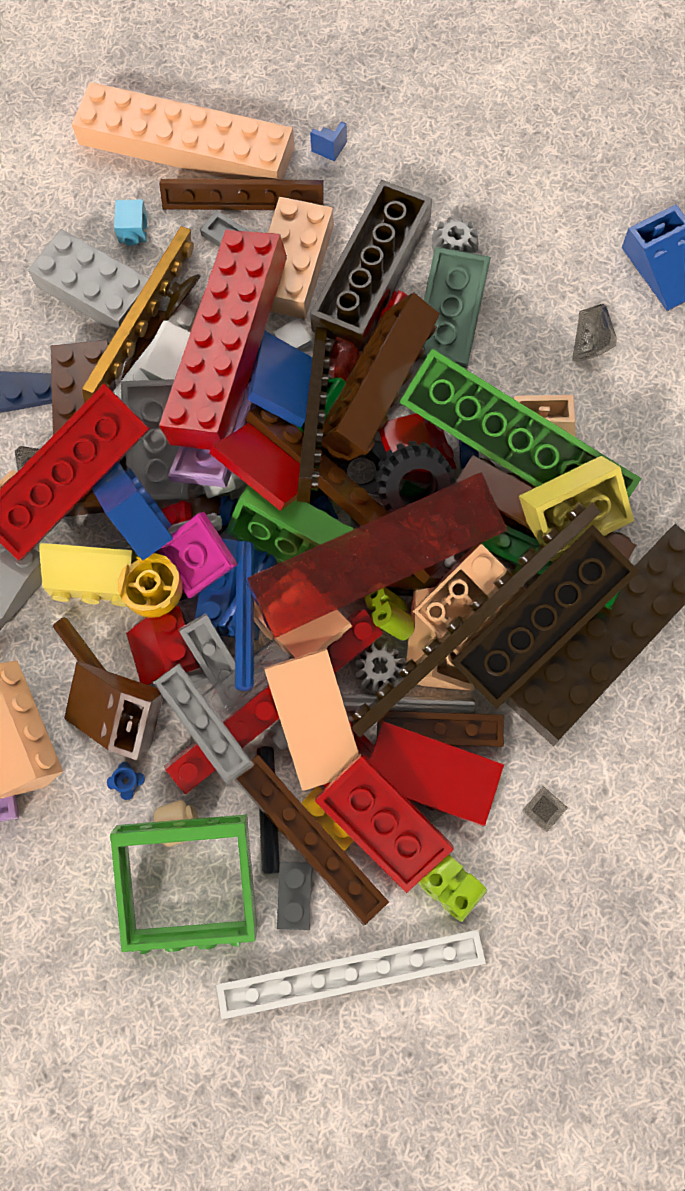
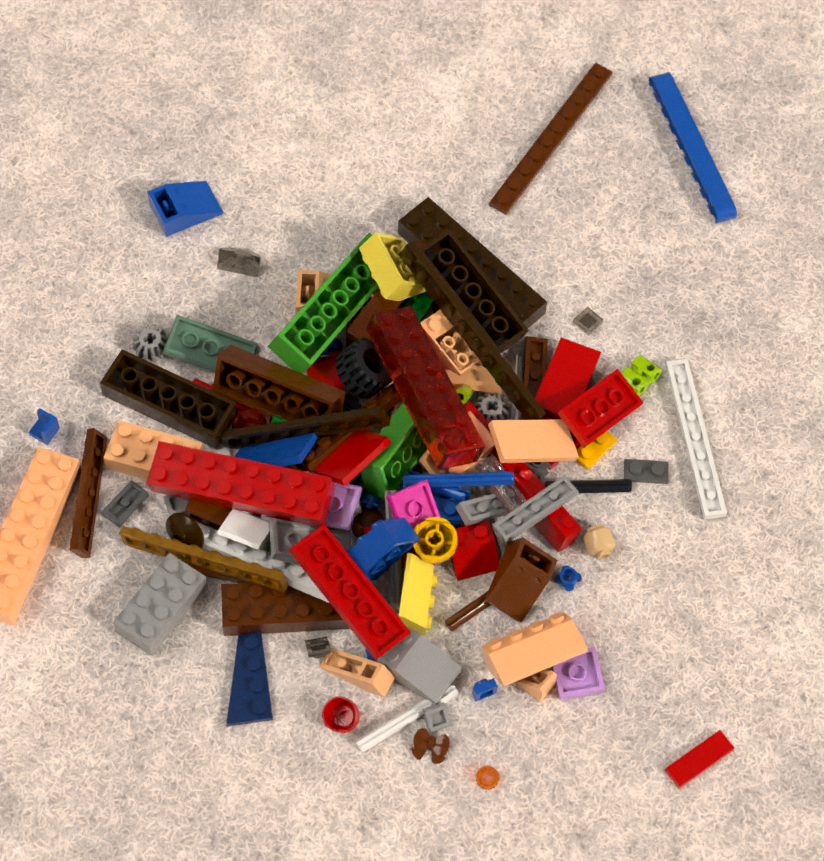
camera: 95 degrees left, 10 degrees down
(130, 221) = (104, 576): medium azure brick -> none
(178, 937) = (610, 532): bright green window -> none
(312, 841) = (615, 452): reddish brown plate -> none

